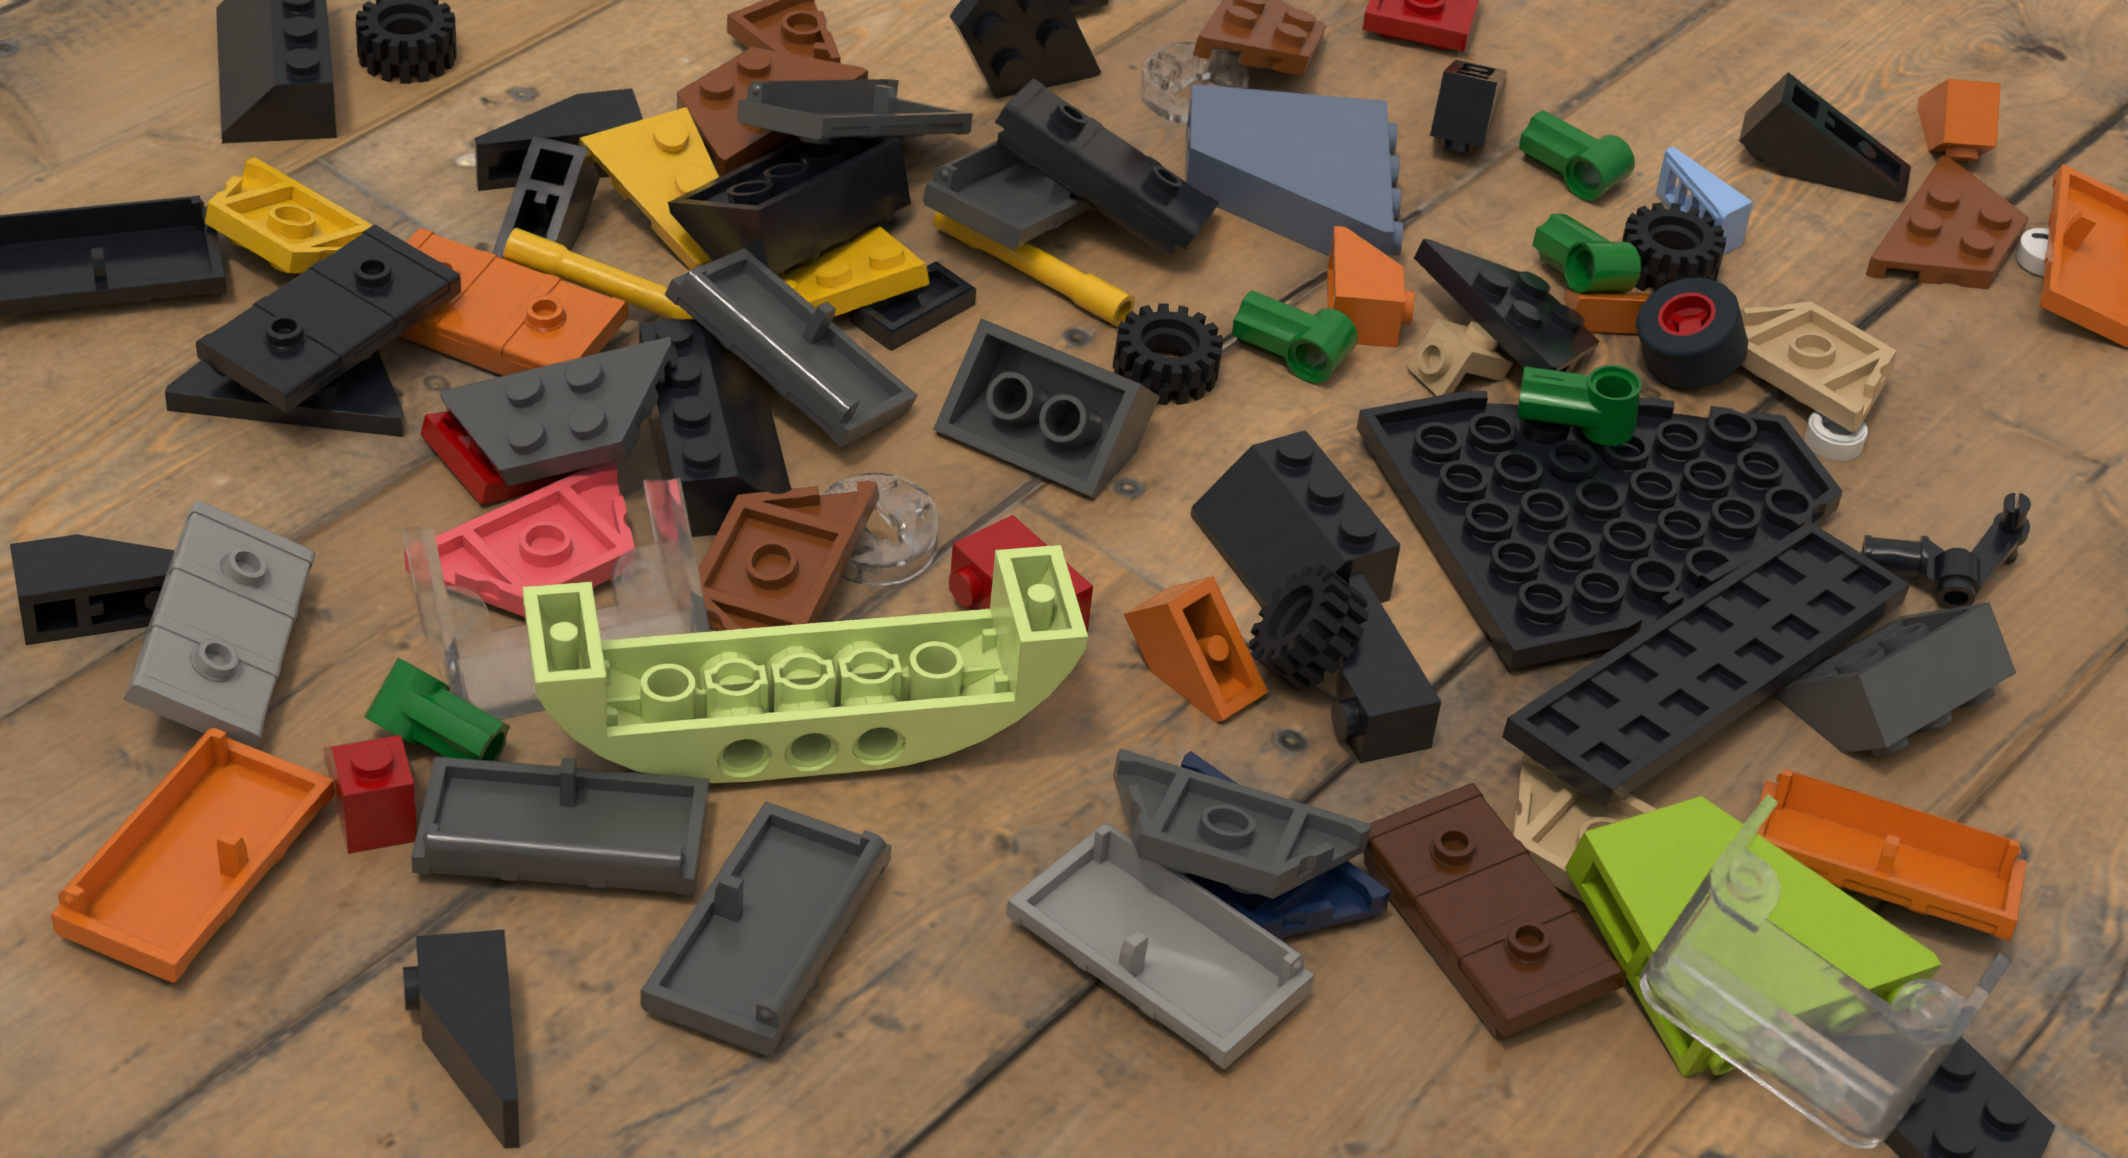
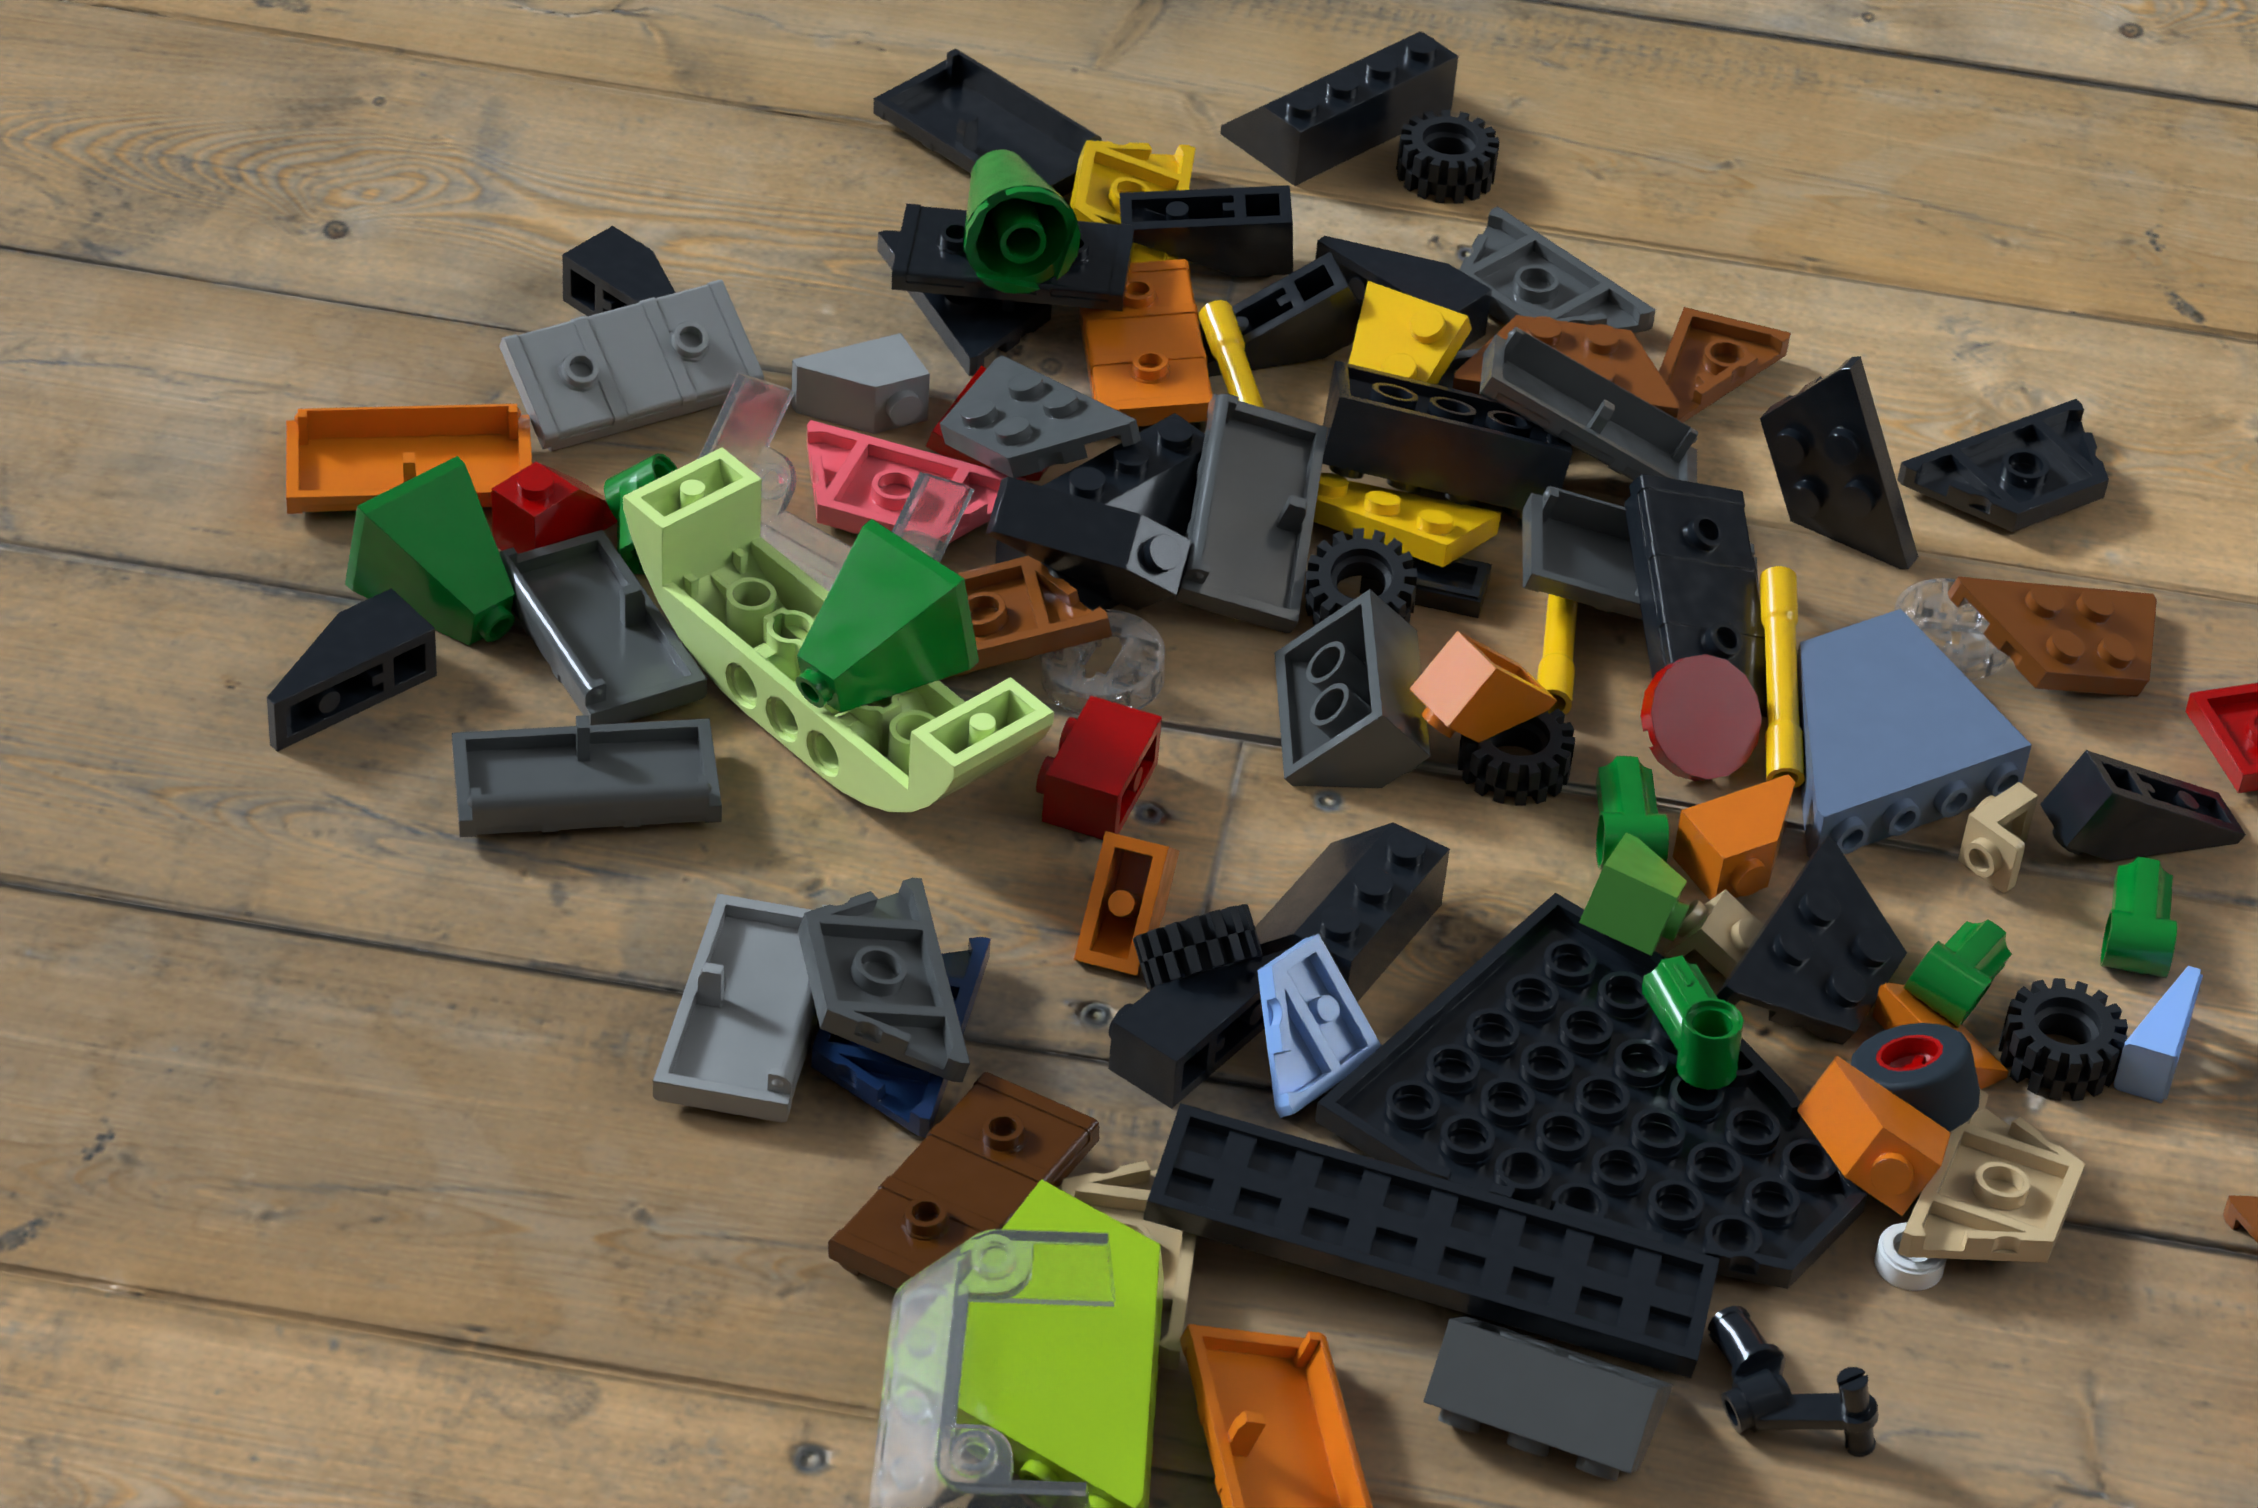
camera: 60 degrees right, 0 degrees up
(336, 272) = (1017, 225): none -> green cone
(381, 882) = (435, 553): none -> green slope
(385, 490) = (863, 385): none -> light grey slope
(399, 186) = (1220, 228): none -> black slope
(646, 62) = (1542, 279): none -> dark grey wing
(775, 444) = (1091, 542): none -> black slope
(830, 598) = (886, 625): none -> green slope
(926, 312) = (1359, 558): none -> black tyre
(1138, 326) = (1478, 691): none -> orange slope
(1226, 239) = (1701, 717): none -> tile
(1263, 212) = (1779, 620): none -> yellow piece
(1405, 366) = (1636, 897): none -> bright green slope
(1433, 610) = (1310, 1025): none -> light blue wing
(1444, 177) = (1997, 836): none -> tan bracket
(1747, 378) = (1874, 1135): none -> orange slope

